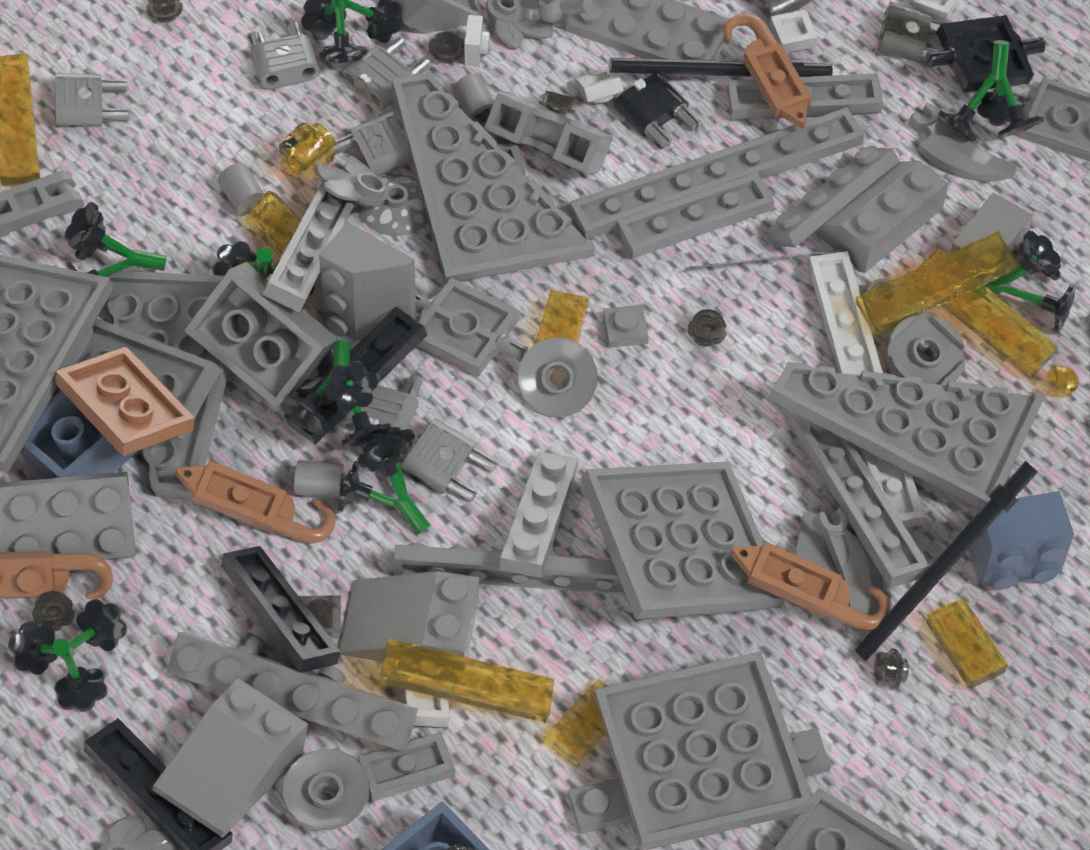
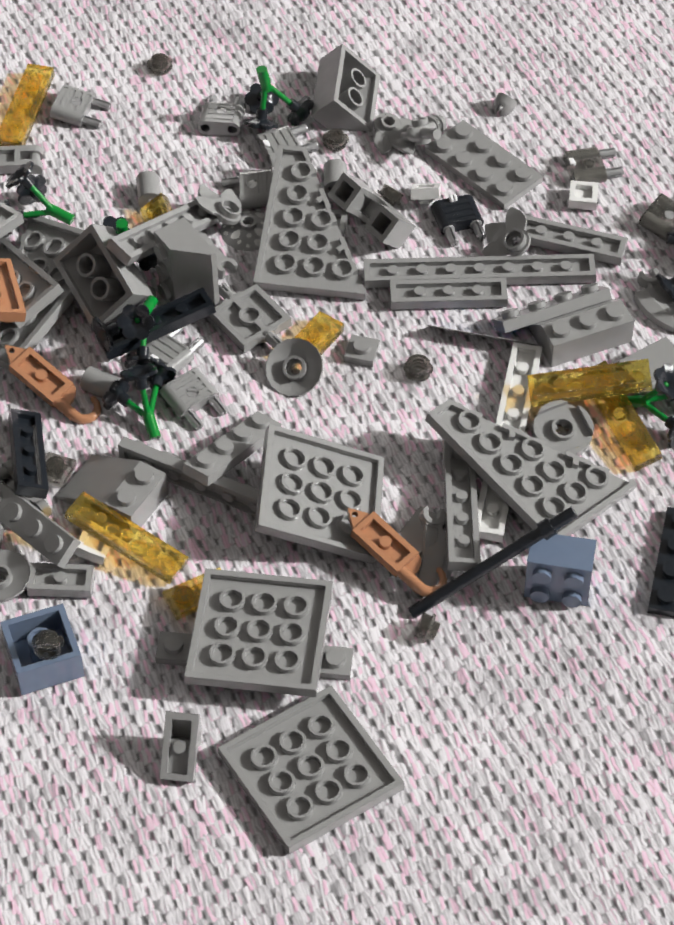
camera: 25 degrees right, 5 degrees down
(305, 148) = (202, 172): clear yellow head -> none
(475, 41) = (354, 140): white plate -> none
(705, 67) = (528, 207): black bar -> none
(728, 115) = (505, 235): none -> light grey plate
(772, 71) = (548, 213): nougat plate -> none
(966, 643) = (490, 628): clear yellow plate -> none
(1065, 381) = (656, 479): clear yellow hinge -> none

